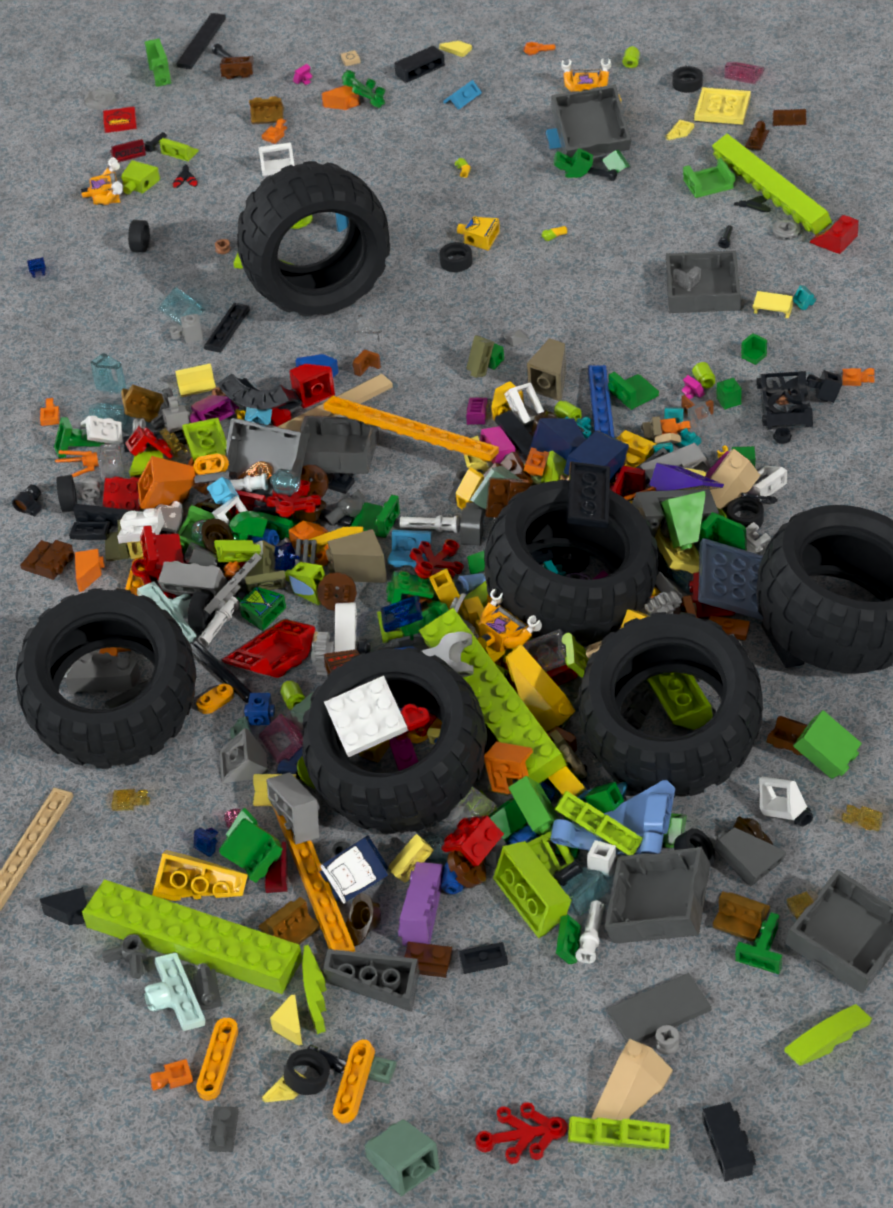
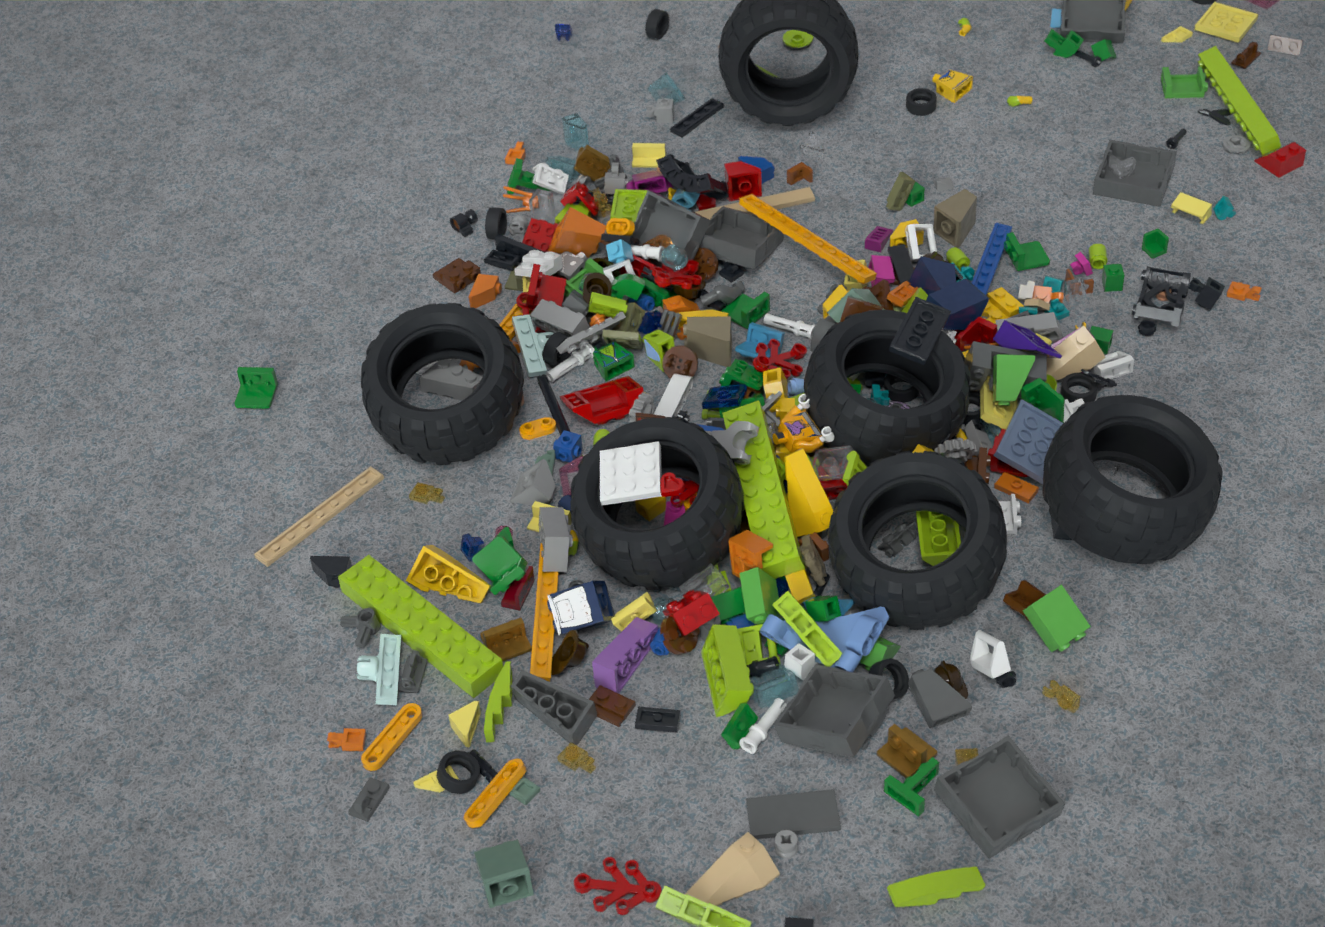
camera: 20 degrees right, 0 degrees up
(419, 1020) = (576, 757): none -> clear yellow plate

